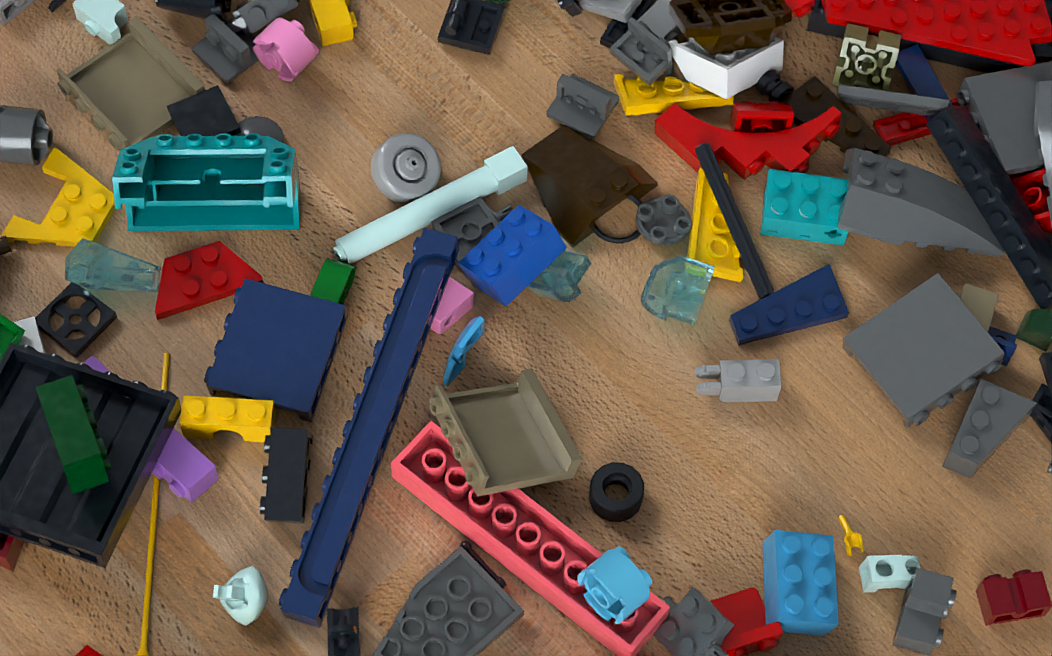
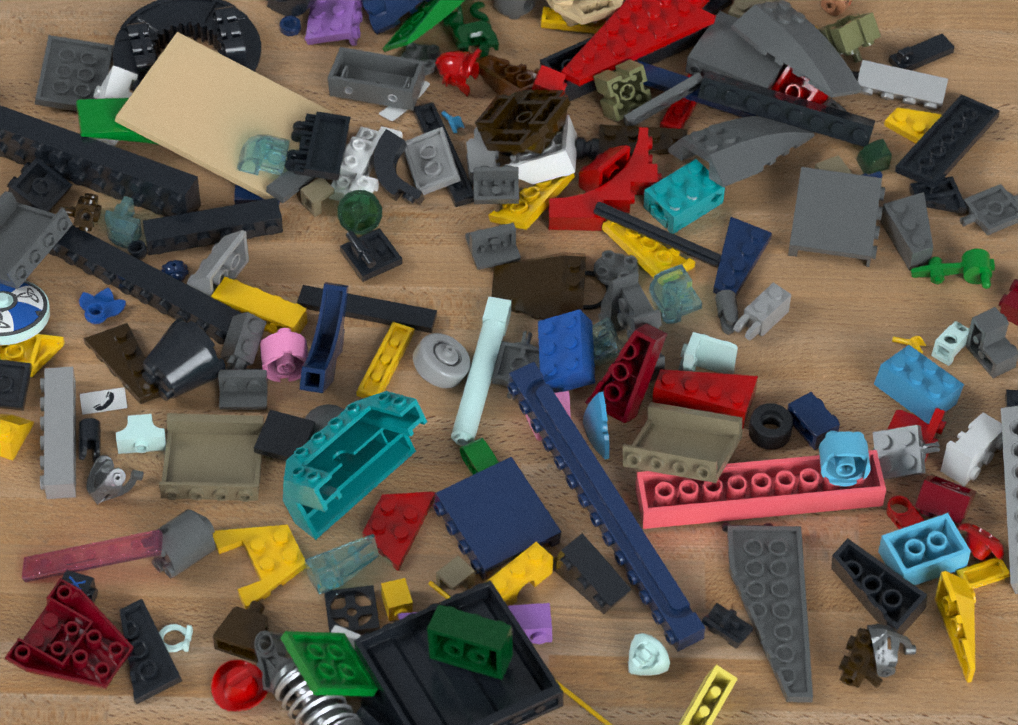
camera: 45 degrees left, 10 degrees down
(28, 31) = (106, 481): none -> dark grey helmet
(115, 343) = (396, 598): none -> yellow brick
(185, 366) = (455, 574): none -> dark tan panel
(331, 66) = (328, 340): none -> dark blue arch
(369, 128) = (385, 360): none -> yellow tile
(412, 69) = (374, 309): none -> black tile
(530, 326) = (631, 373): none -> dark red wedge
(591, 291) = (630, 309): none -> dark grey wedge
(596, 411) = (706, 391): none -> red wedge
(629, 359) = (708, 354): none -> light aqua bracket
(661, 523) = (812, 419): none -> dark blue brick
(716, 346) = (727, 310): none -> dark grey hinge
(1003, 522) = (975, 267): none -> green piece

